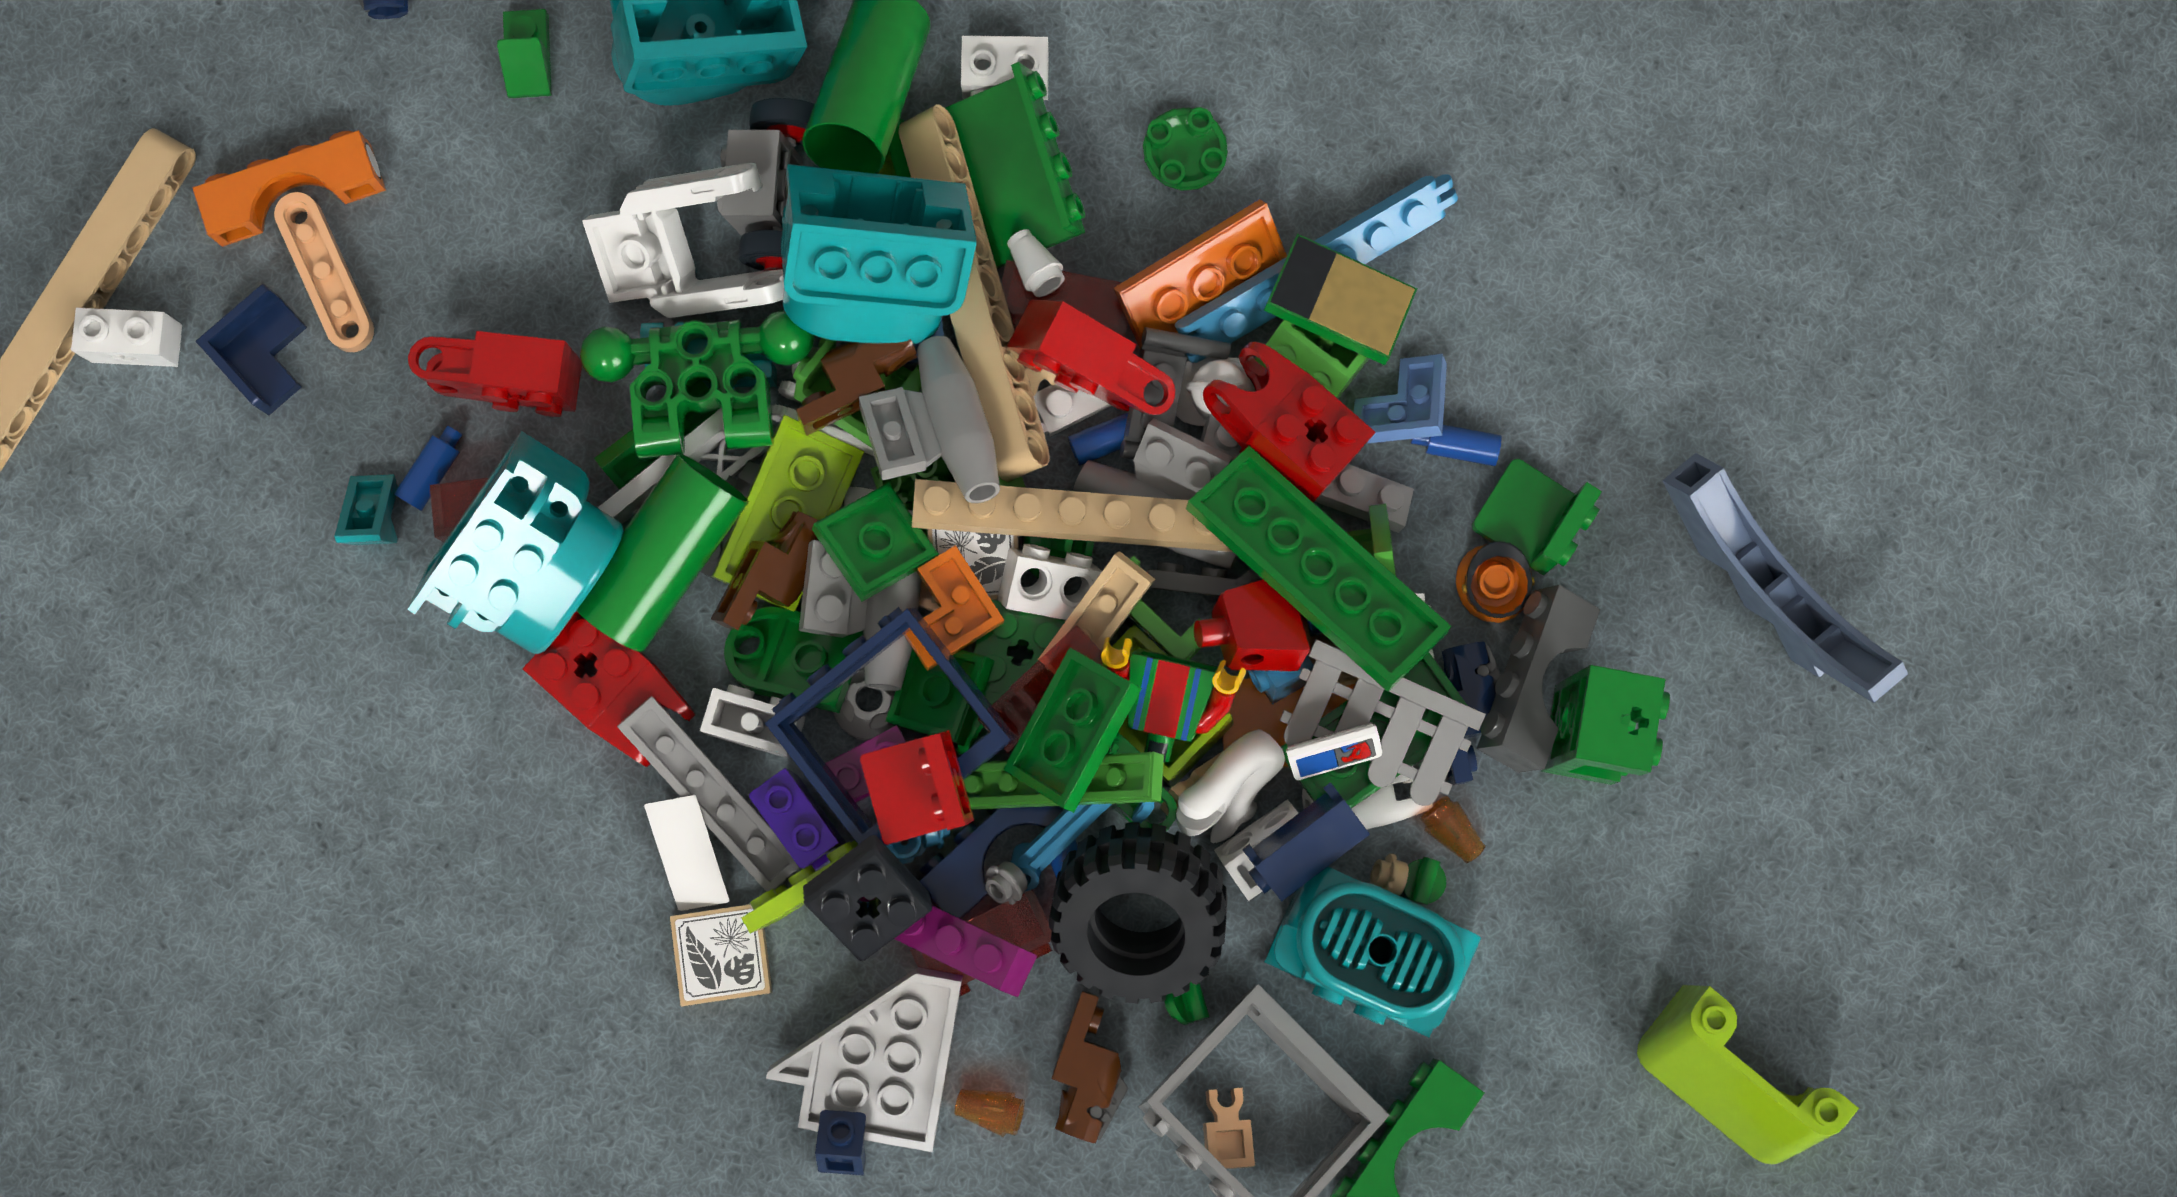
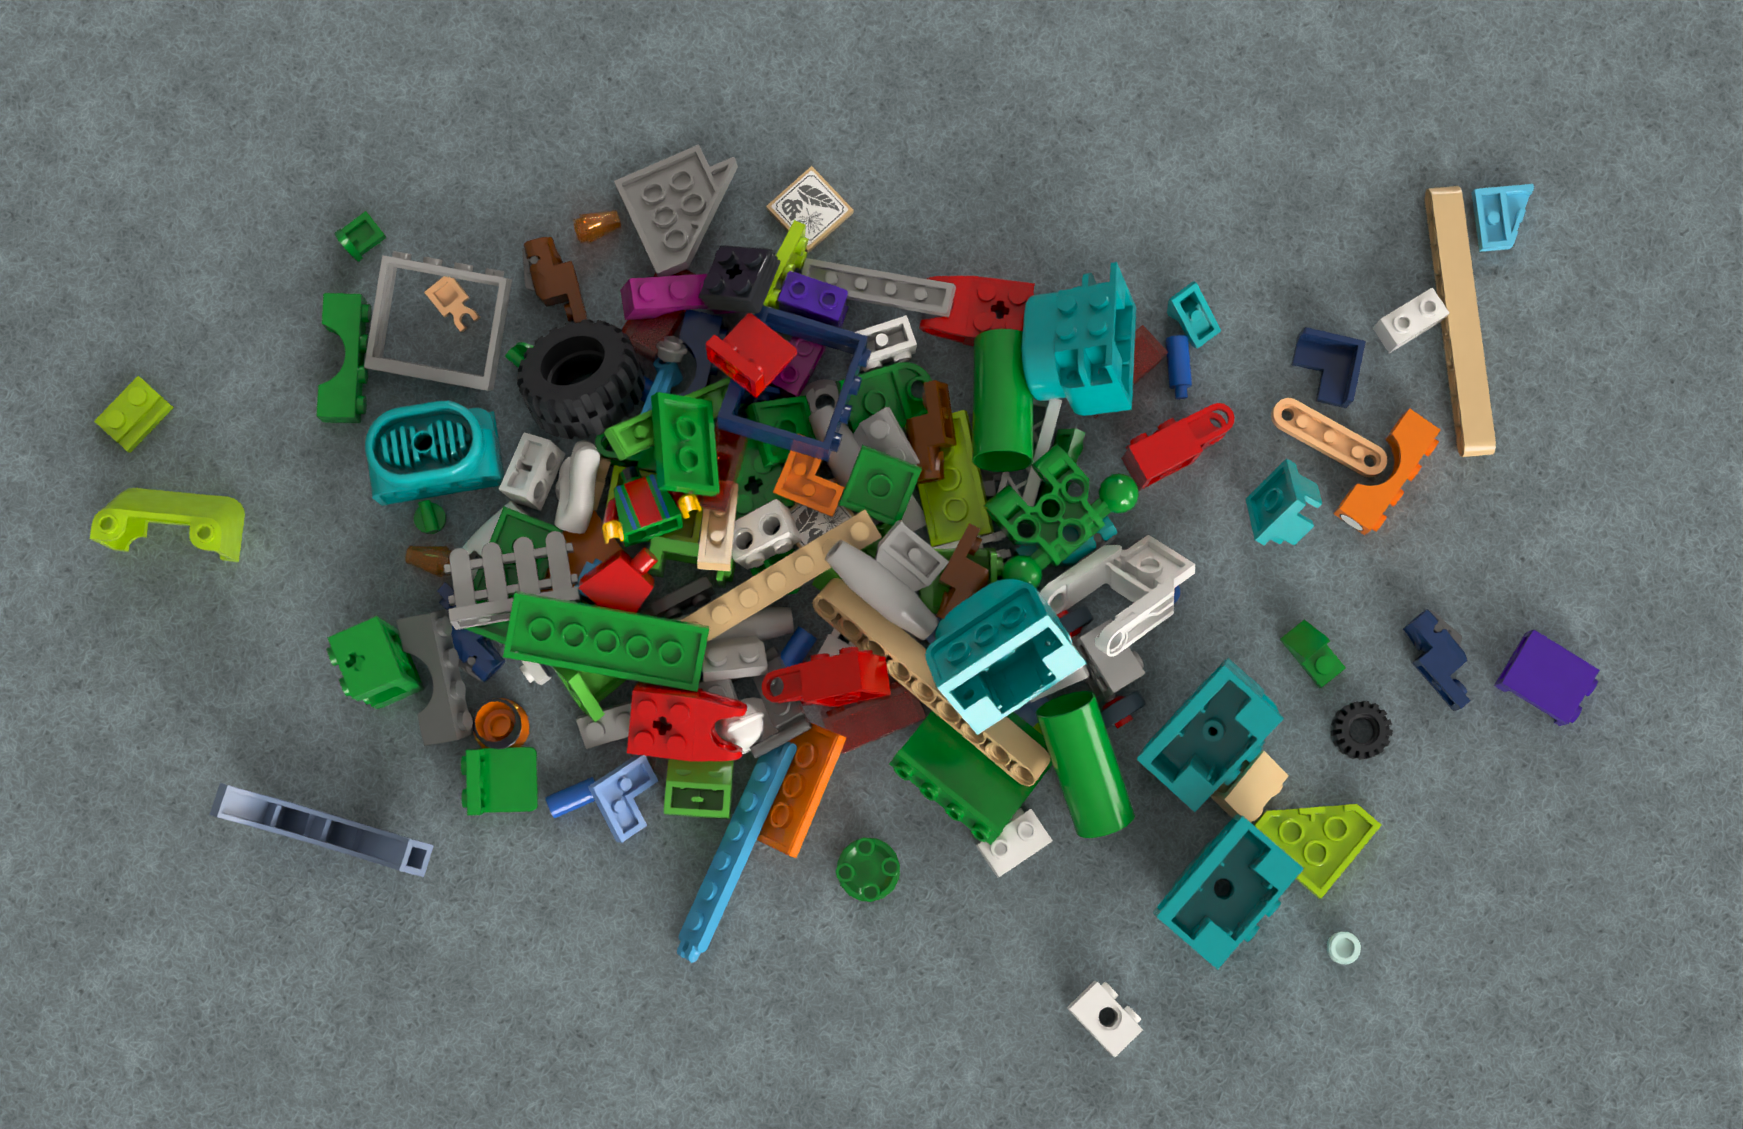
camera: 140 degrees right, 0 degrees up
(434, 221) = (1277, 504): none -> teal panel
(686, 852) = (867, 248): white sticker -> none
(841, 1142) = (668, 152): dark blue bracket -> none
(1035, 264) = (904, 722): white cone -> none
(1305, 845) = (508, 479): dark blue brick -> none
(1334, 751) = (528, 544): slope -> none
(1340, 299) = (703, 826): tile -> none
(1390, 874) = (451, 506): tan plate -> none

